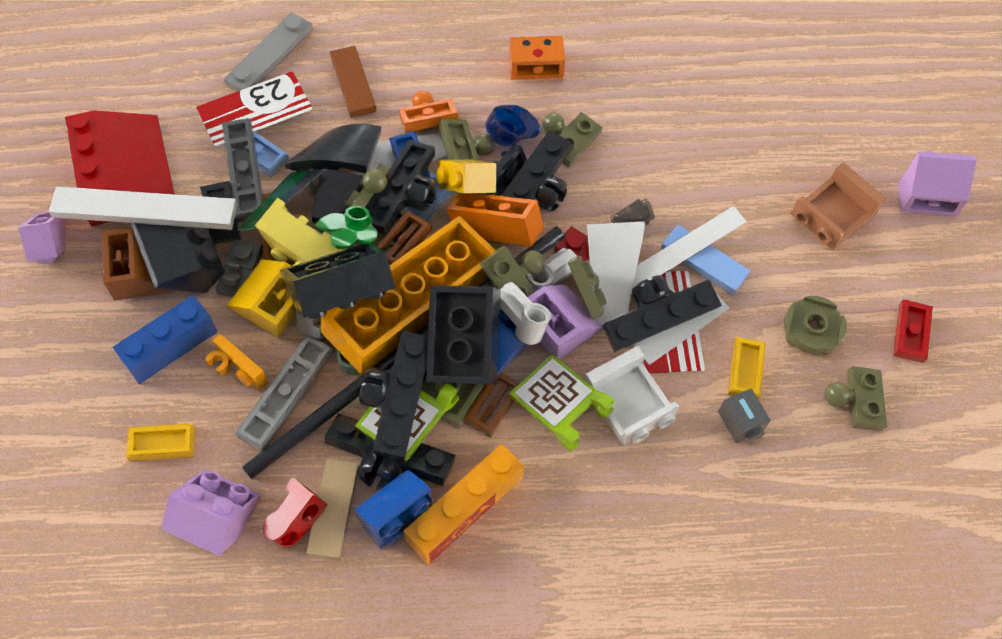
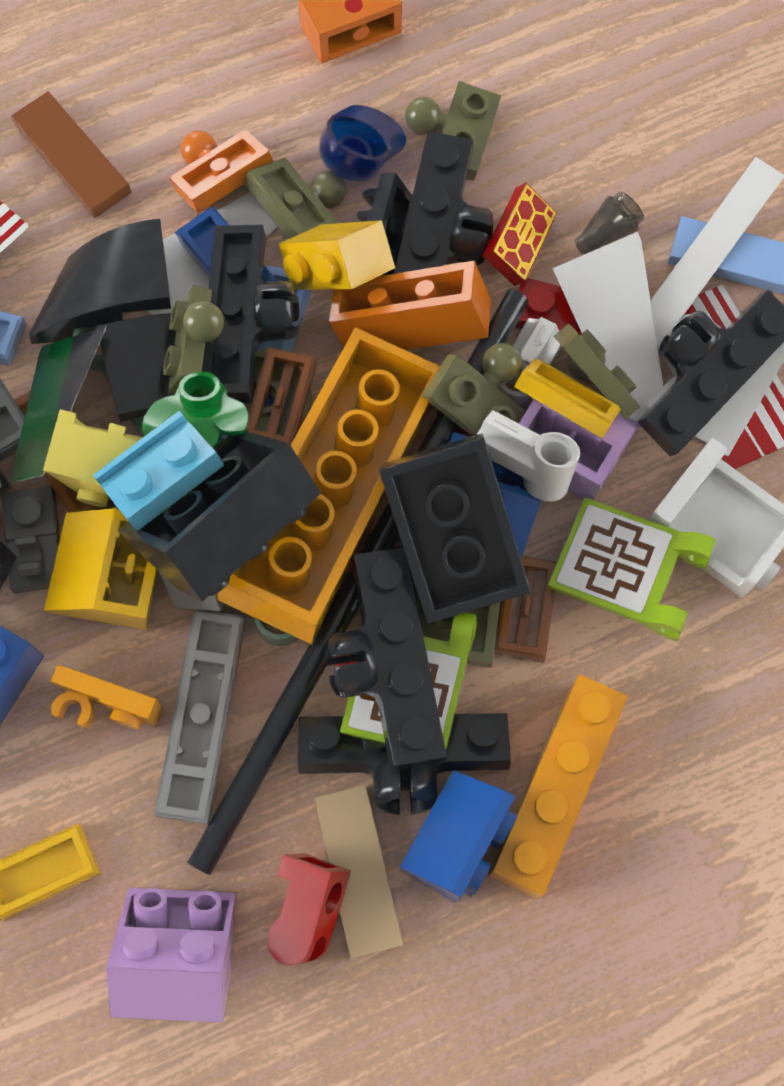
camera: 20 degrees left, 10 degrees up
(313, 245) = (158, 470): none -> medium azure plate
(561, 293) = (568, 397): none -> yellow tile
(578, 202) = (520, 234): none -> red tile

